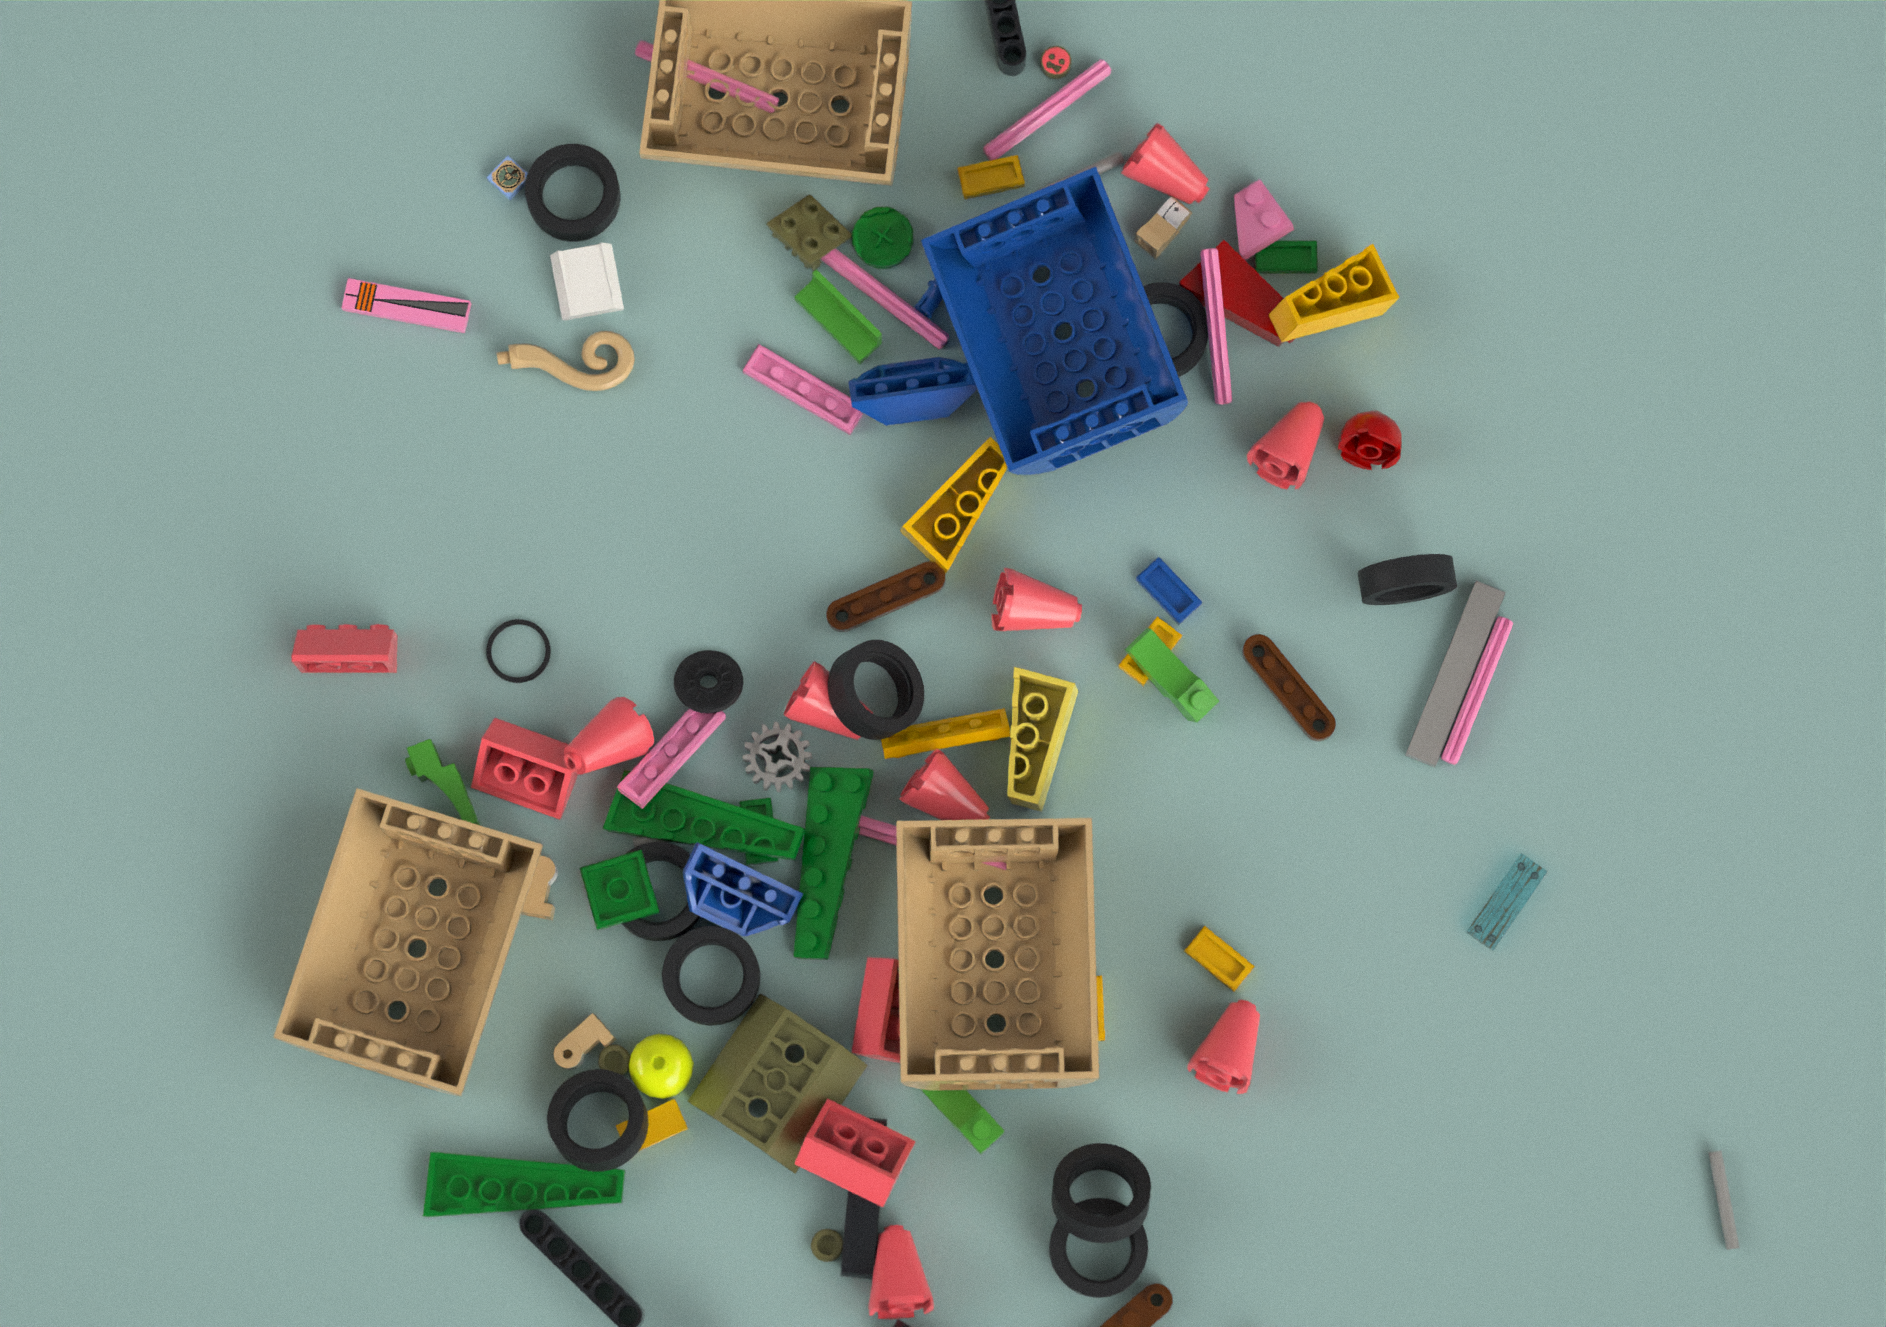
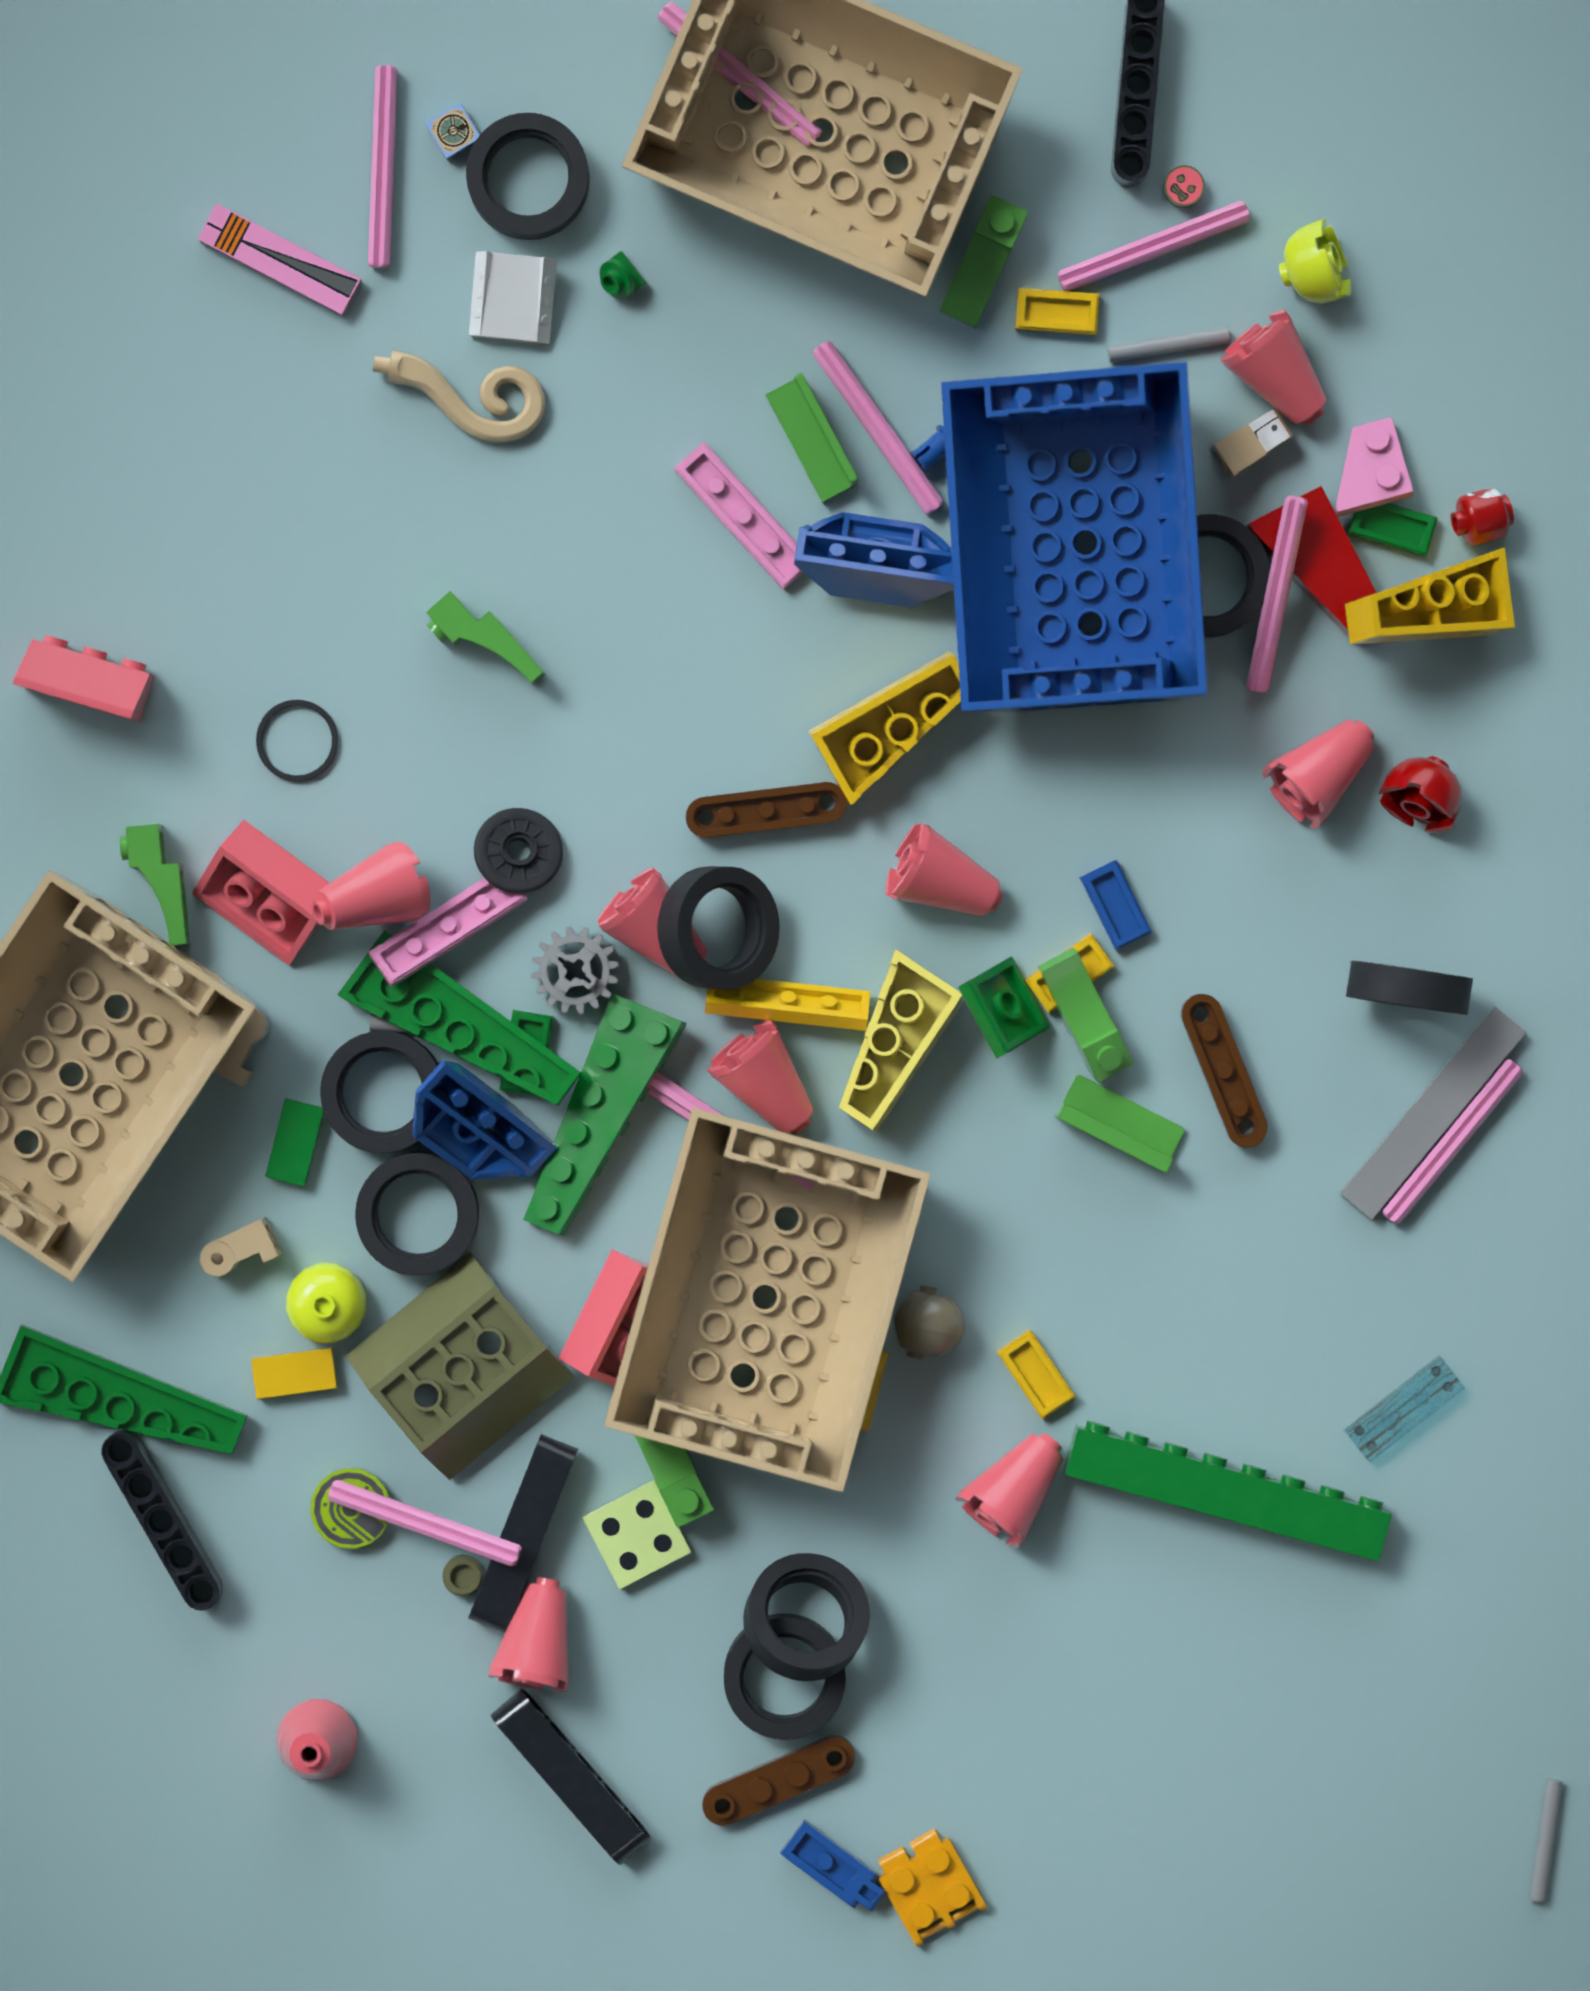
camera: 15 degrees right, 10 degrees up
(464, 218) = (382, 166): none -> bright pink axle
(580, 1086) = (203, 1308): black tyre -> none
(601, 954) = (294, 1142): none -> green tile
(614, 528) = (455, 622): none -> bright green slope
(615, 1059) = (271, 1280): olive tile -> none
(619, 890) = (335, 1080): green tile -> none
(662, 245) = (620, 276): none -> green plate
(725, 1218) = (341, 1524): none -> tile
(785, 1209) = (424, 1523): none -> bright pink axle
(808, 231) = (809, 315): olive hinge -> none
(854, 1152) = (527, 1483): coral slope -> none
(882, 237) = (898, 349): green tile -> none
(926, 155) = (983, 261): none -> bright green slope
(951, 1172) = (636, 1534): none -> yellowish green tile
(1108, 687) = (1004, 1007): none -> green tile
(1126, 942) = (929, 1323): none -> dark tan cap
(1168, 86) = (1315, 264): none -> neon yellow cylinder
(1223, 751) = (1120, 1123): none -> bright green panel
(1349, 229) = (1482, 516): none -> red head
(1393, 1003) = (1227, 1492): none -> green brick

